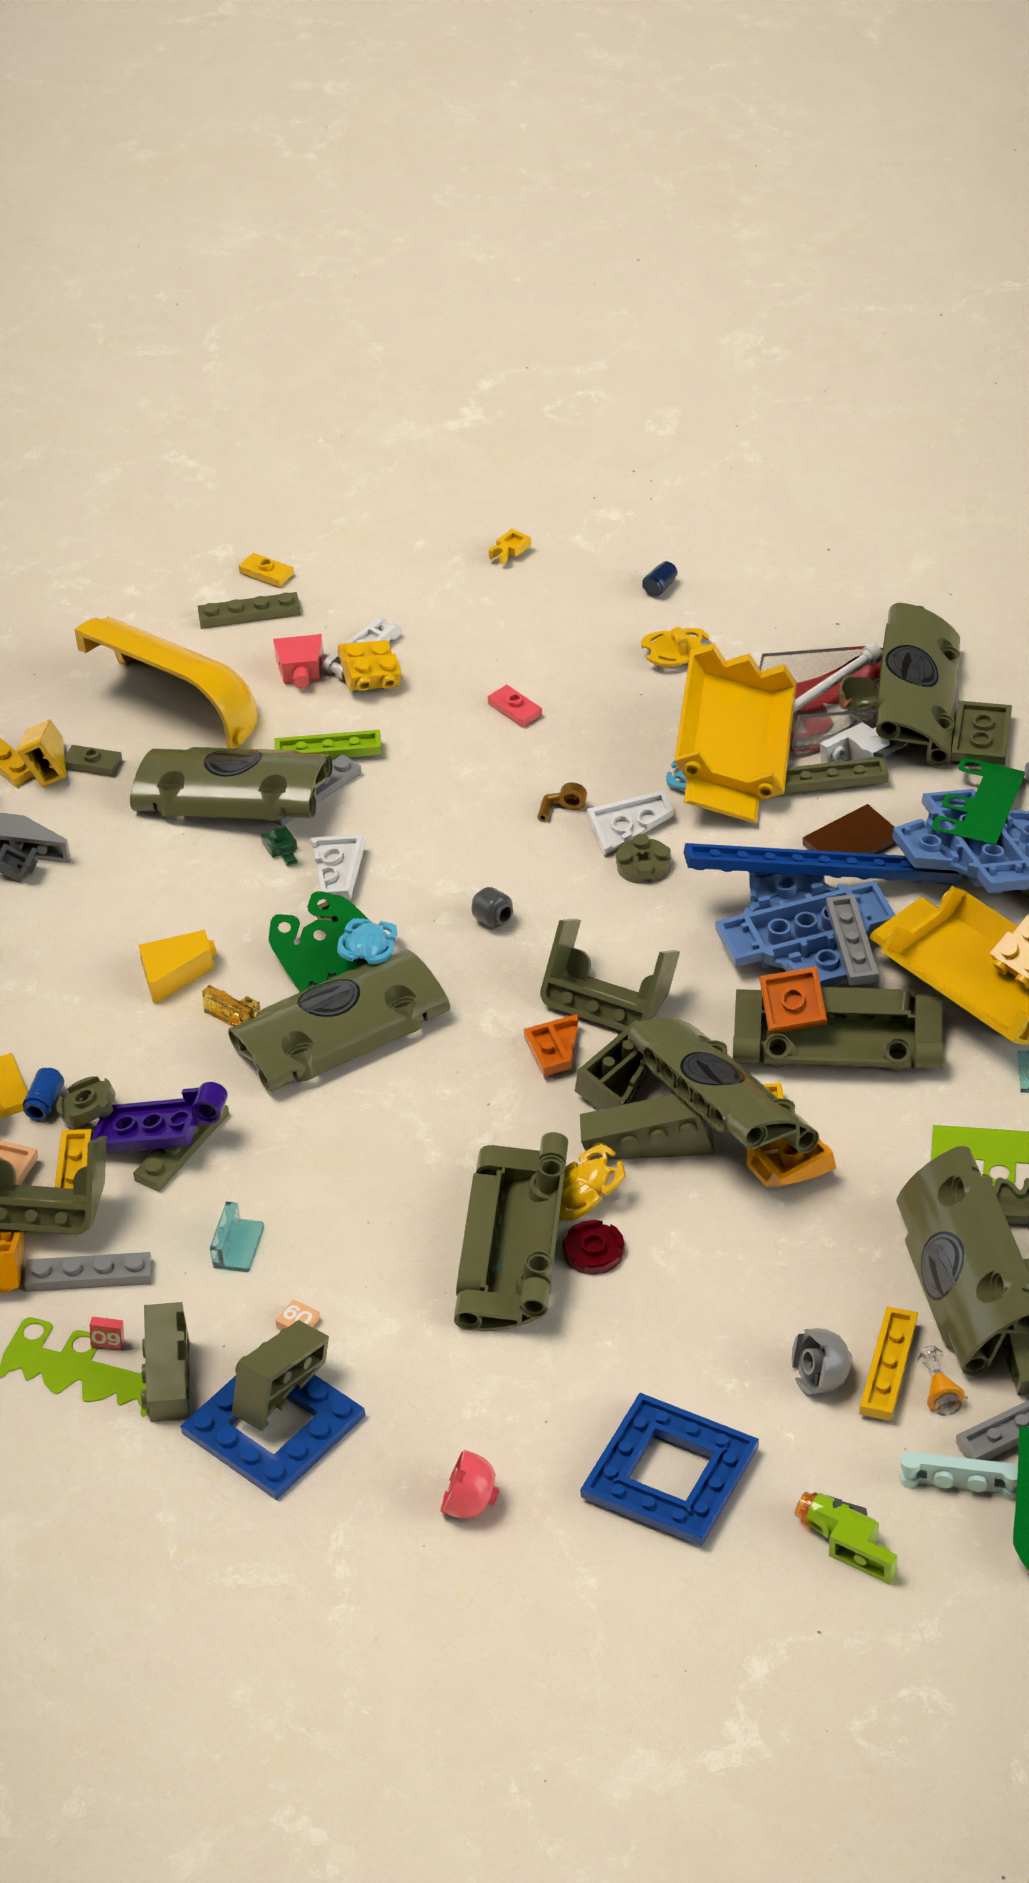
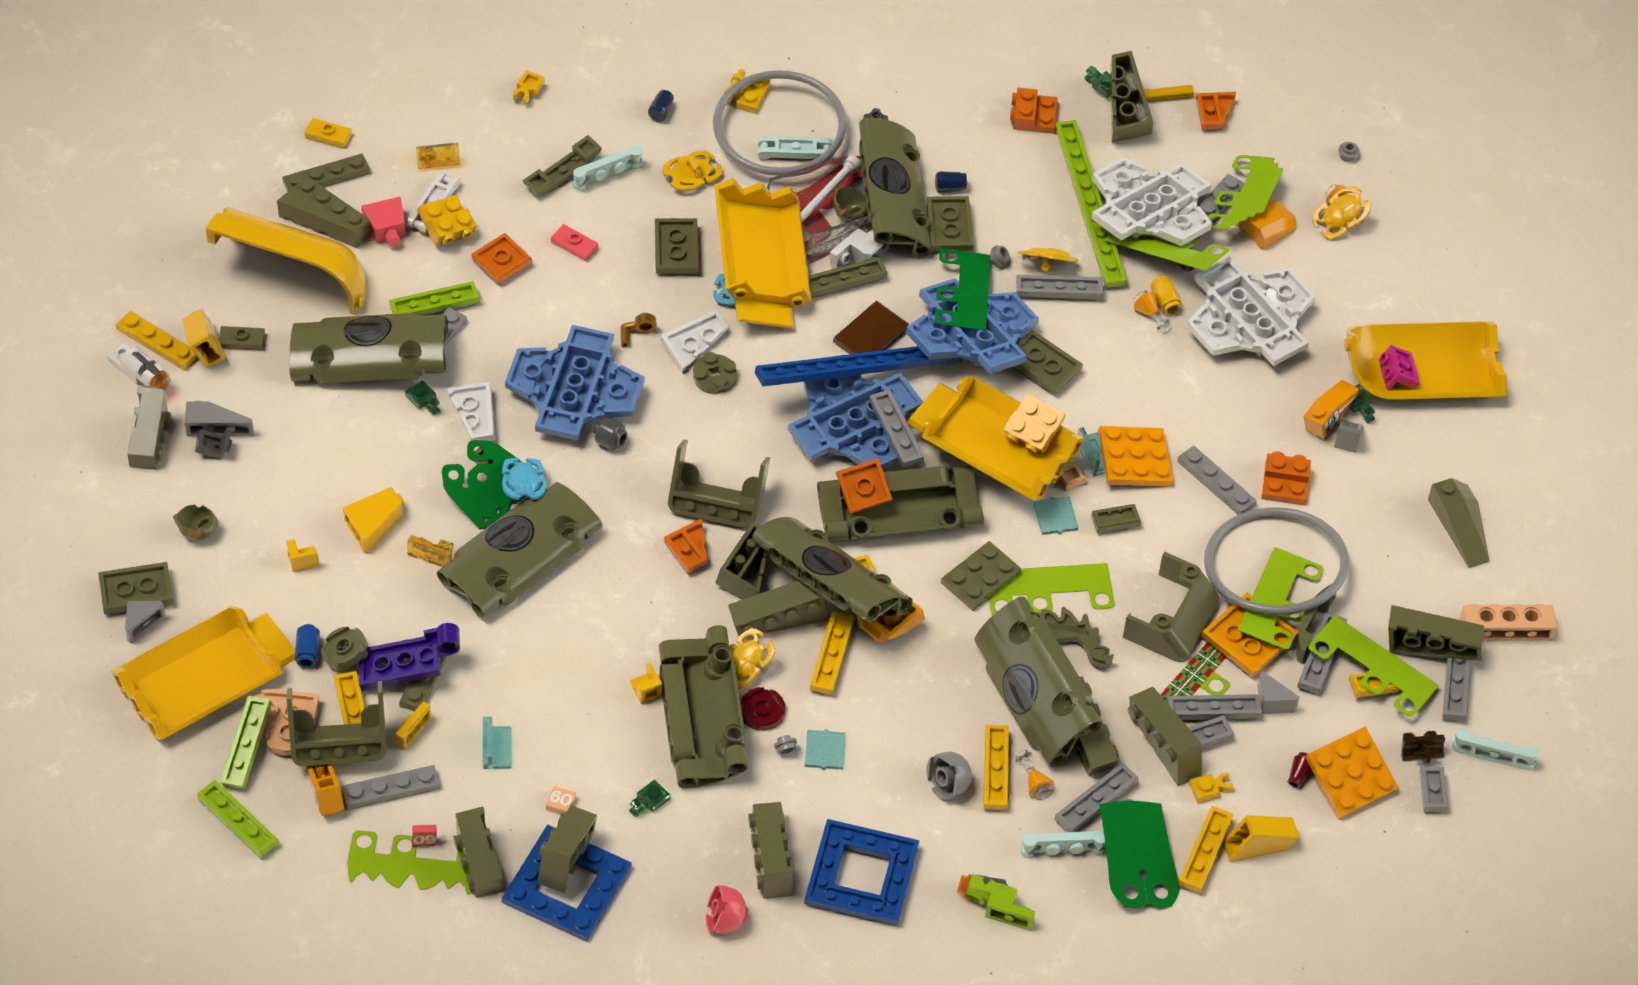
camera: 20 degrees left, 10 degrees up
(73, 999) = (301, 558): none -> yellow panel
(139, 1202) = (413, 725): none -> yellow plate
(229, 640) = (326, 213): none -> olive wedge
(381, 601) = (438, 155): none -> clear yellow hinge
(414, 1332) = (650, 797): none -> clear green plate
(422, 712) = (501, 258): none -> orange plate
(451, 1200) = (648, 685): none -> yellow panel
(465, 847) = (574, 382): none -> medium blue plate
(552, 616) = (562, 171): none -> olive slope
(552, 1421) = (772, 850): none -> olive wedge
(576, 632) = (607, 167): none -> light aqua plate
(610, 1293) = (785, 744): none -> light grey plate
(635, 721) = (676, 246): none -> olive plate
(663, 1309) = (825, 749): none -> clear light blue piece
(702, 1192) = (832, 653): none -> yellow plate
(774, 575) = (751, 95): none -> yellow plate
(807, 635) = (792, 147): none -> light aqua plate
(808, 558) = (779, 74): none -> light grey piece
(926, 1128) = (980, 575): none -> olive plate
(993, 688) = (950, 181): none -> dark blue piece

